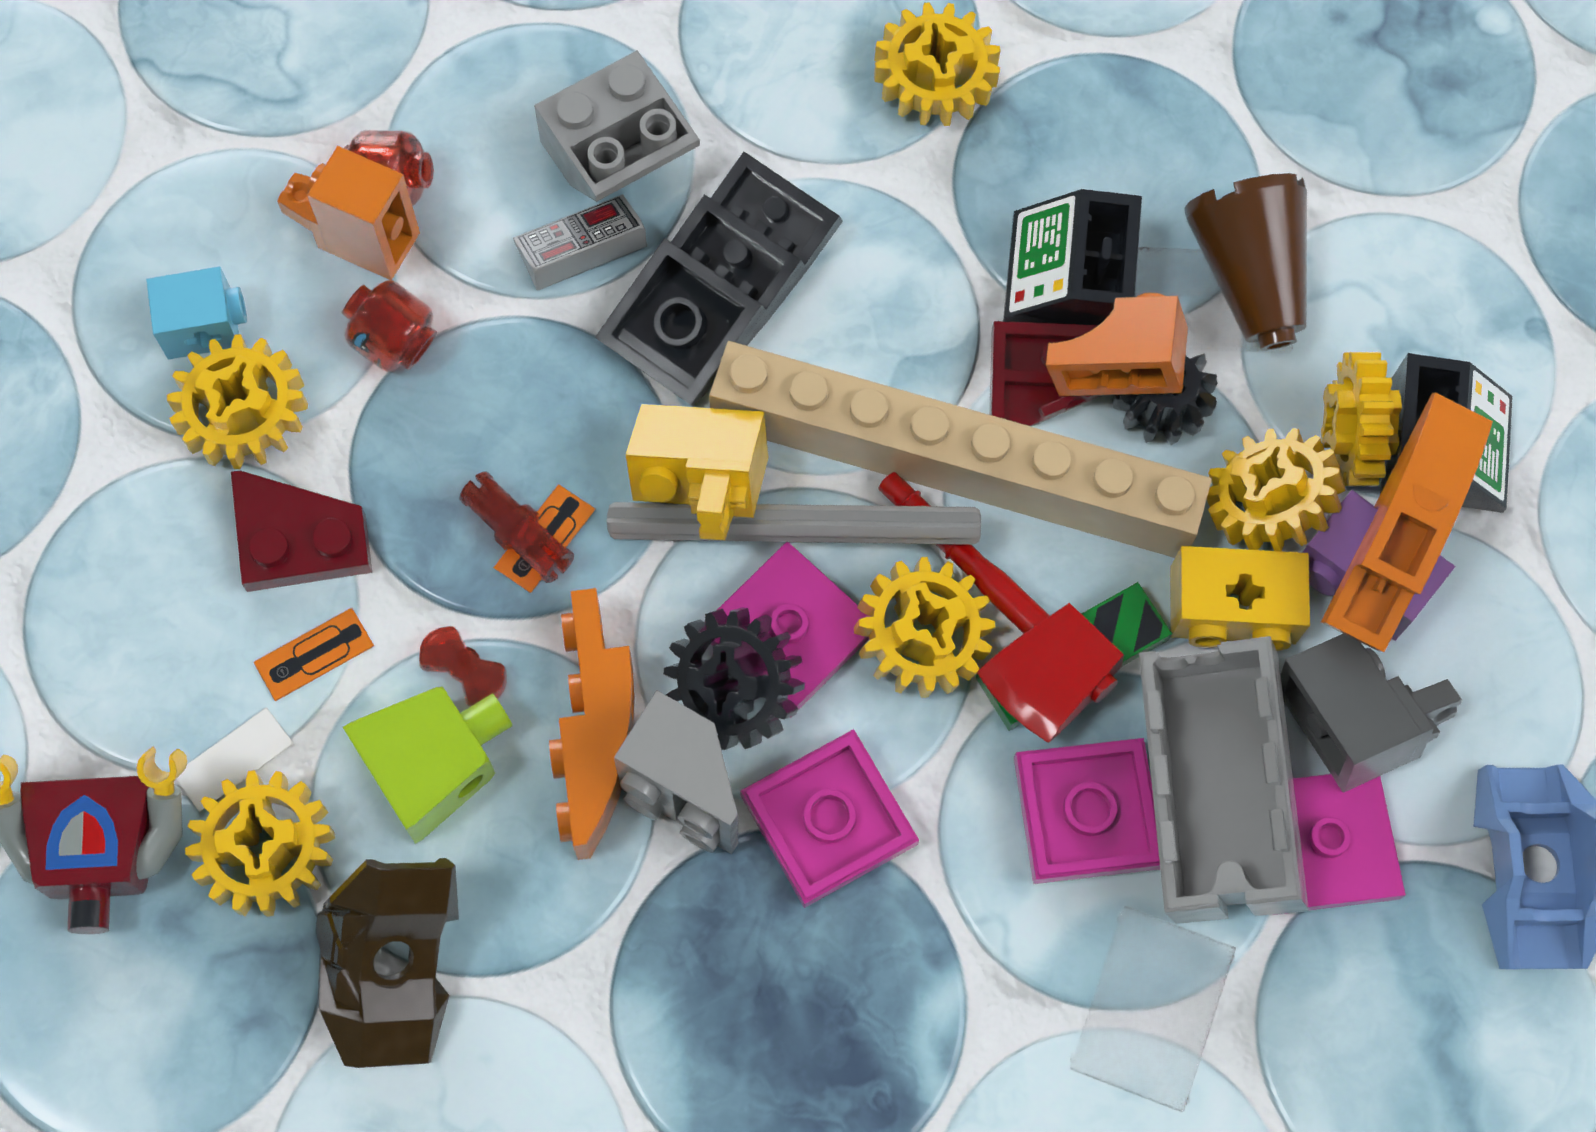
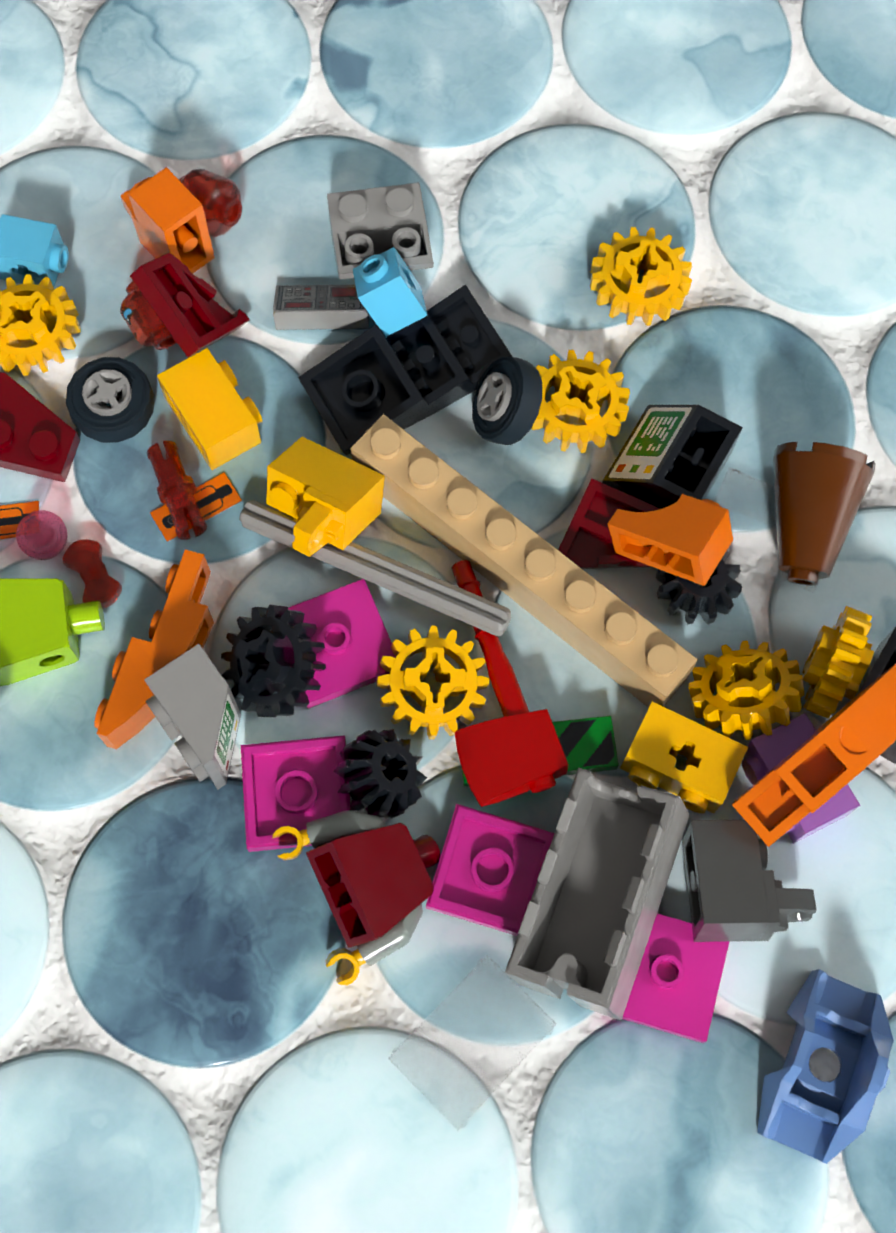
camera: 25 degrees right, 0 degrees up
(369, 433) = (103, 383): none -> black wheel
(381, 645) = (42, 535): none -> clear pink plate
(429, 302) = (185, 304): none -> dark red wing
(511, 414) = (211, 408): none -> yellow brick
(665, 194) = (389, 291): none -> medium azure brick
(858, 269) = (507, 400): none -> black wheel
(918, 755) = (380, 774): none -> black gear
(936, 247) = (577, 401): none -> yellow gear
(966, 878) = (370, 880): none -> dark red torso

